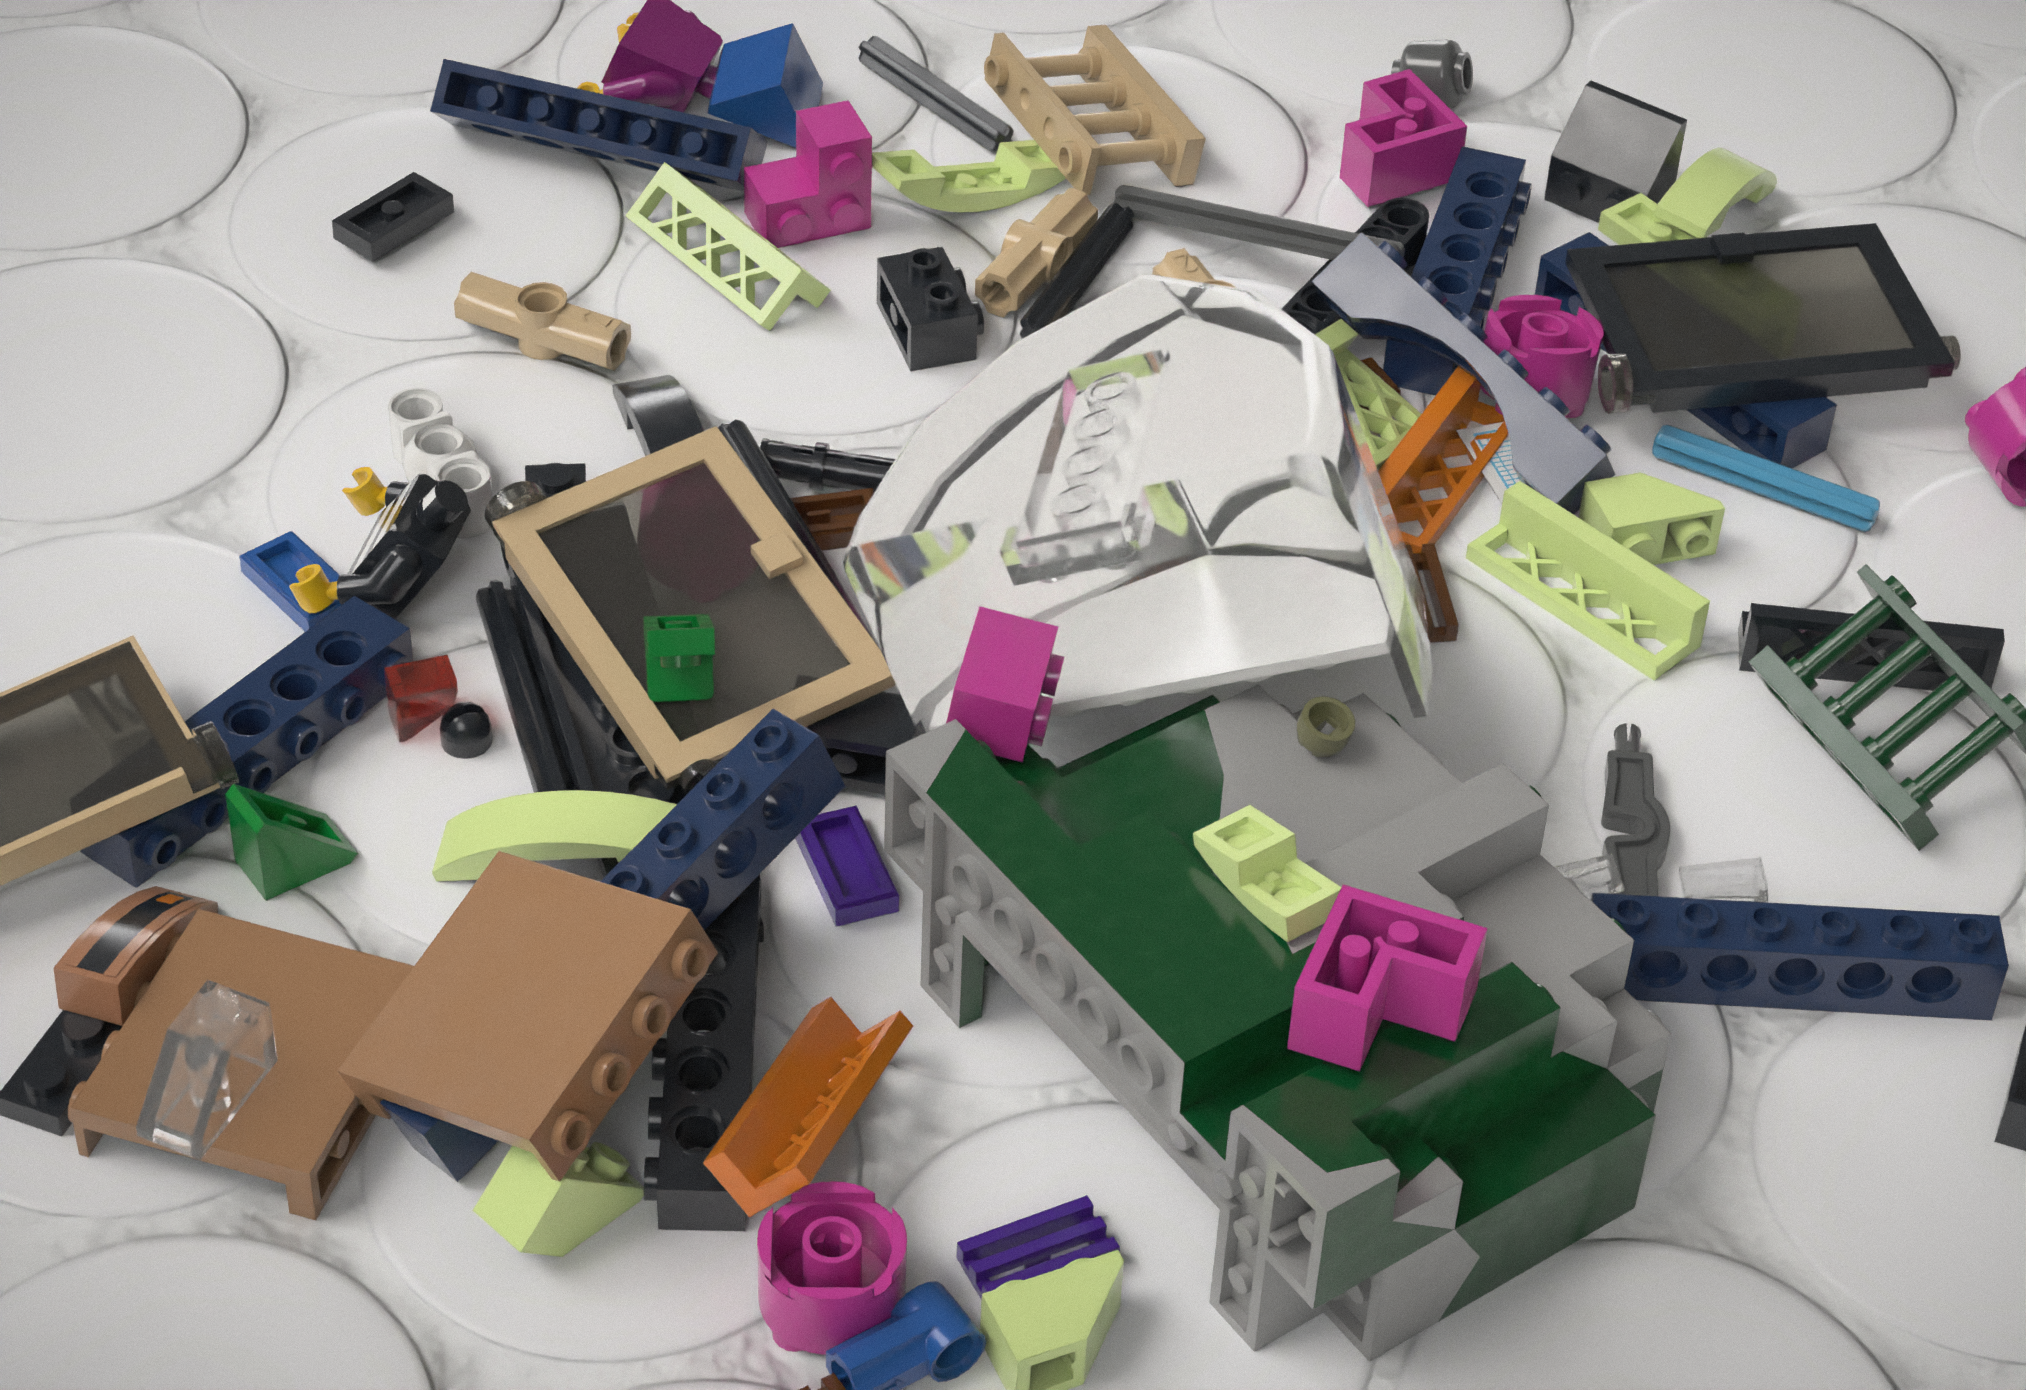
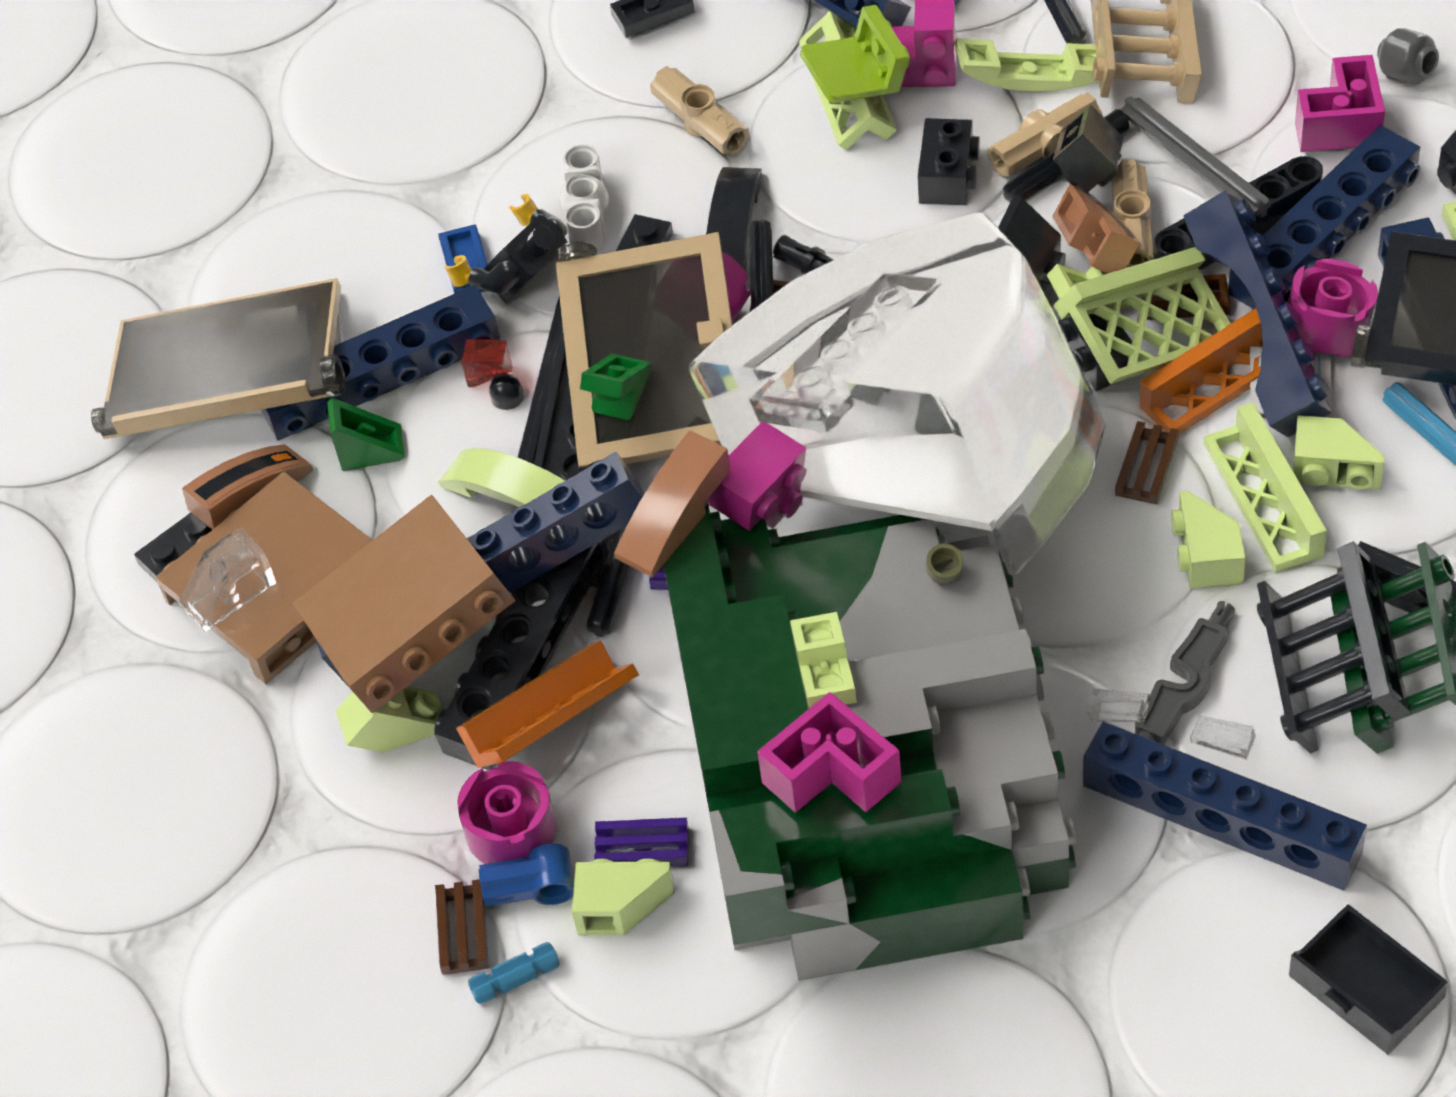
camera: 35 degrees right, 10 degrees up
(765, 203) = (859, 65): none -> lime bracket
(786, 936) = (609, 592): none -> black axle
(931, 732) = (673, 503): none -> nougat slope
(1122, 242) = (1089, 150): none -> black brick
(1562, 660) = (1210, 541): none -> yellowish green slope
(1831, 671) = (1373, 650): none -> black fence

